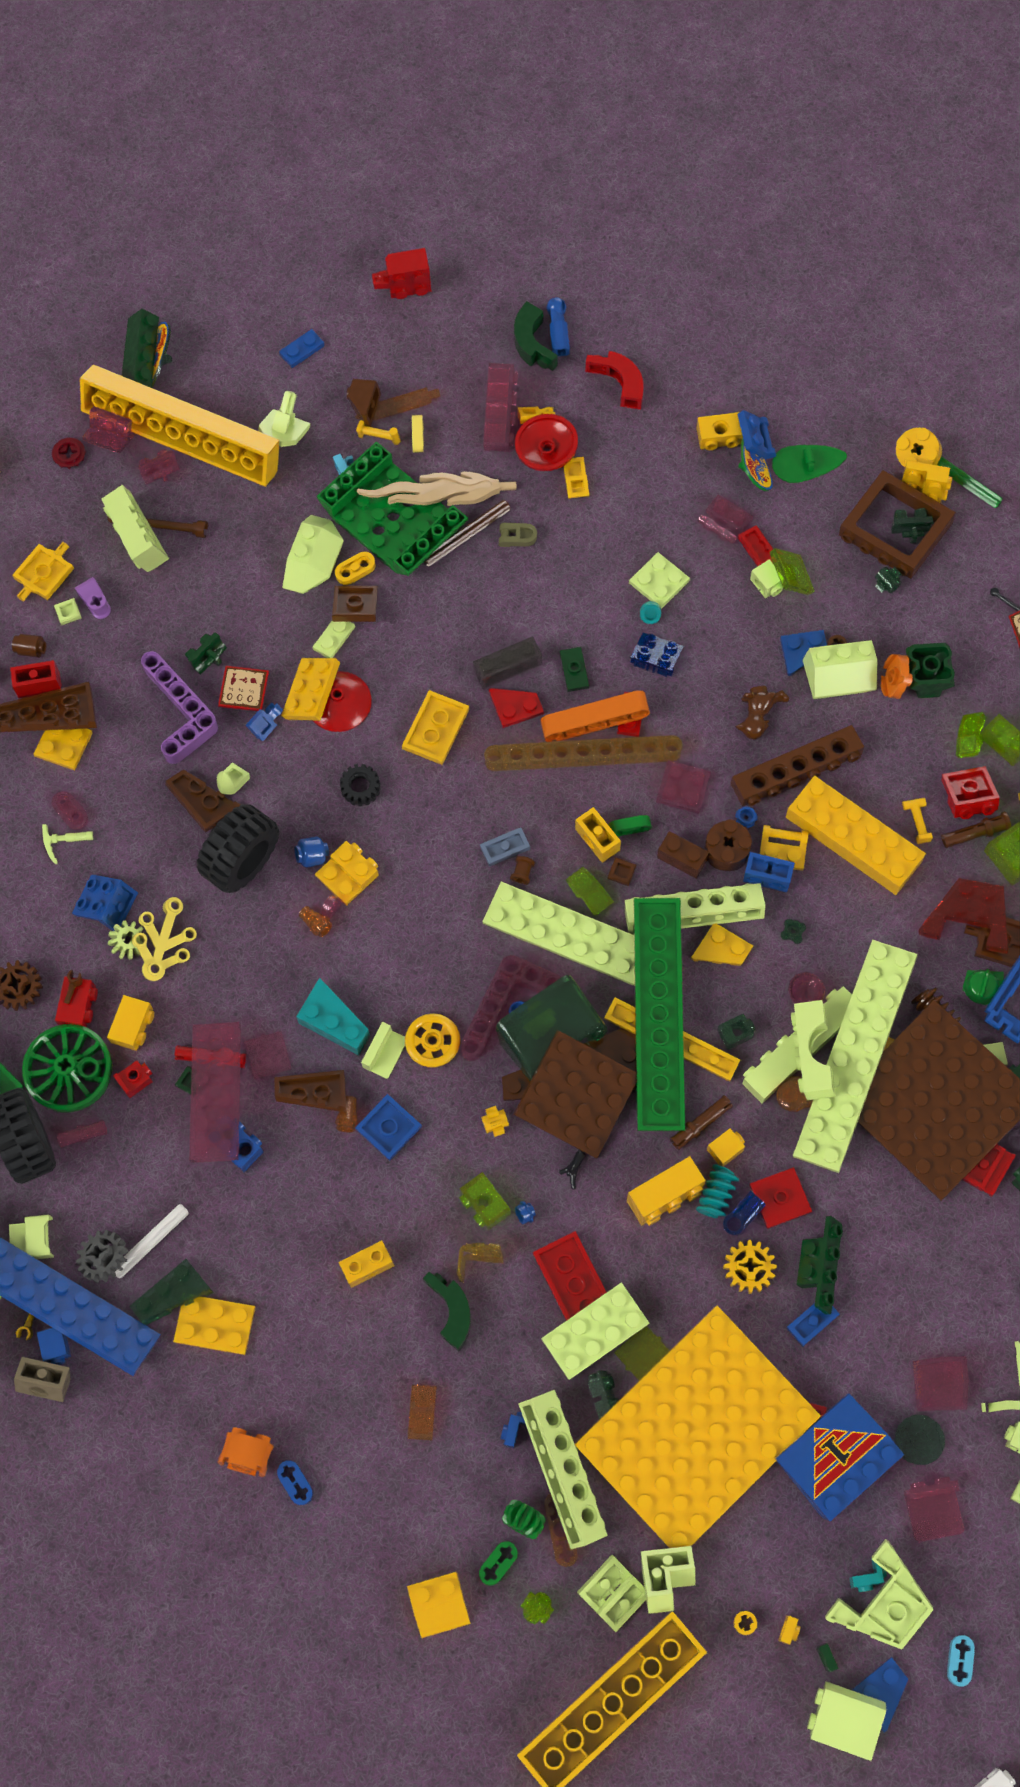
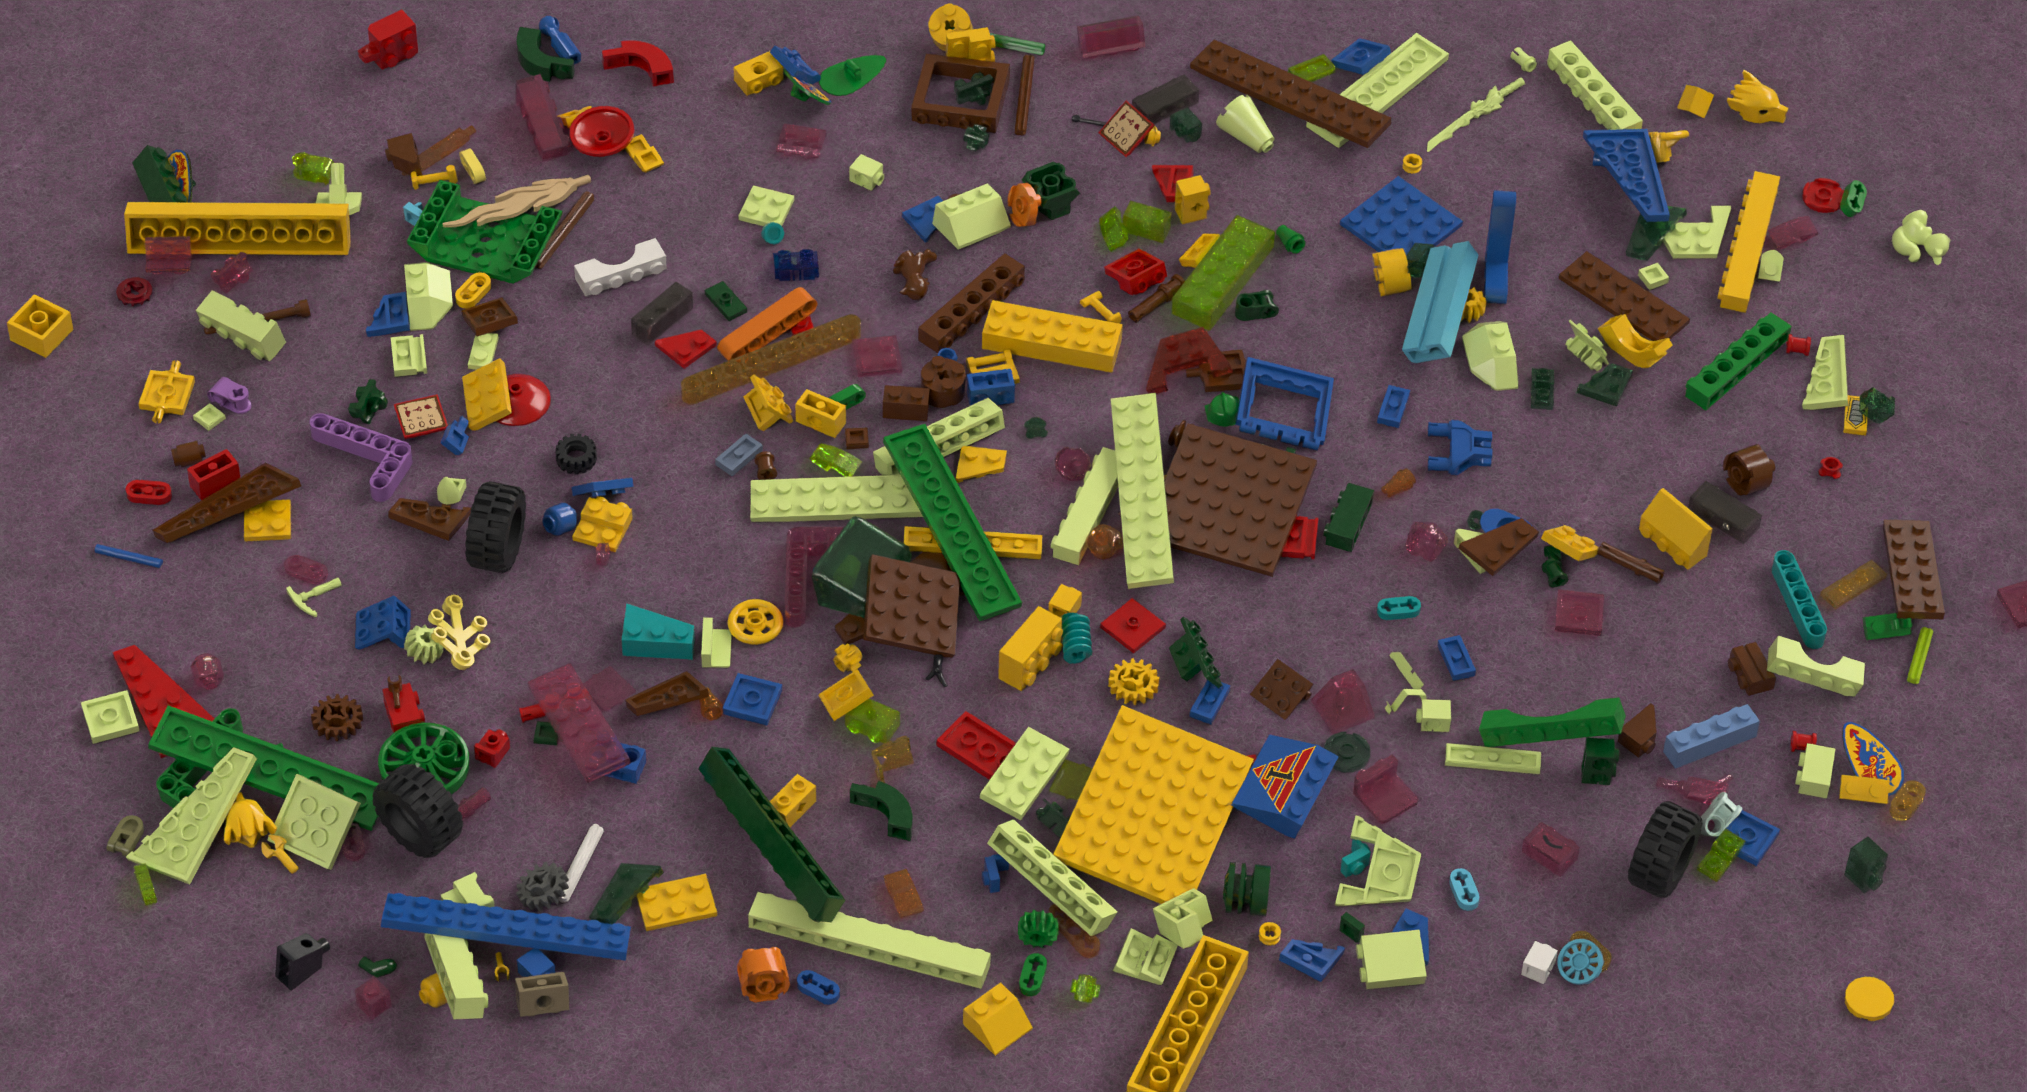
camera: 30 degrees left, 20 degrees down
(130, 1023) = (464, 706): yellow brick -> none
(266, 616) = (408, 355): none -> yellowish green plate
(269, 567) = (390, 316): none -> blue wing
(278, 381) = (313, 169): none -> clear neon green piece
(301, 348) = (318, 136): blue plate -> none
(316, 922) = (596, 571): clear orange cone -> none
(324, 1303) = (771, 835): none -> dark green brick
(365, 1455) = (872, 941): none -> yellowish green brick
(366, 834) = (598, 488): none -> blue wing
(435, 727) = (621, 386): yellow plate -> none
(470, 1167) = (845, 695): none -> yellow tile
(521, 598) = (596, 276): none -> white arch
(525, 534) = (620, 213): olive plate -> none
(526, 1211) = (914, 714): blue plate -> none
(556, 802) = (766, 404): none -> yellow bracket
(696, 1126) = (1030, 599): reddish brown pin -> none
(741, 1023) = (1026, 516): clear green brick -> none
(743, 1570) = (1247, 889): none -> dark green wheel
(746, 1212) = (1107, 644): clear blue piece -> none
(756, 545) = (842, 151): red plate -> none
(772, 1673) = (1311, 958): none -> blue wing
(790, 1630) = (1310, 921): yellow plate -> none
(791, 571) = (886, 158): clear neon green tile -> none
(816, 1078) = (1116, 511): yellowish green arch -> none
(888, 1340) = (1282, 689): none -> reddish brown hinge
(957, 547) = (1024, 95): none -> reddish brown axle

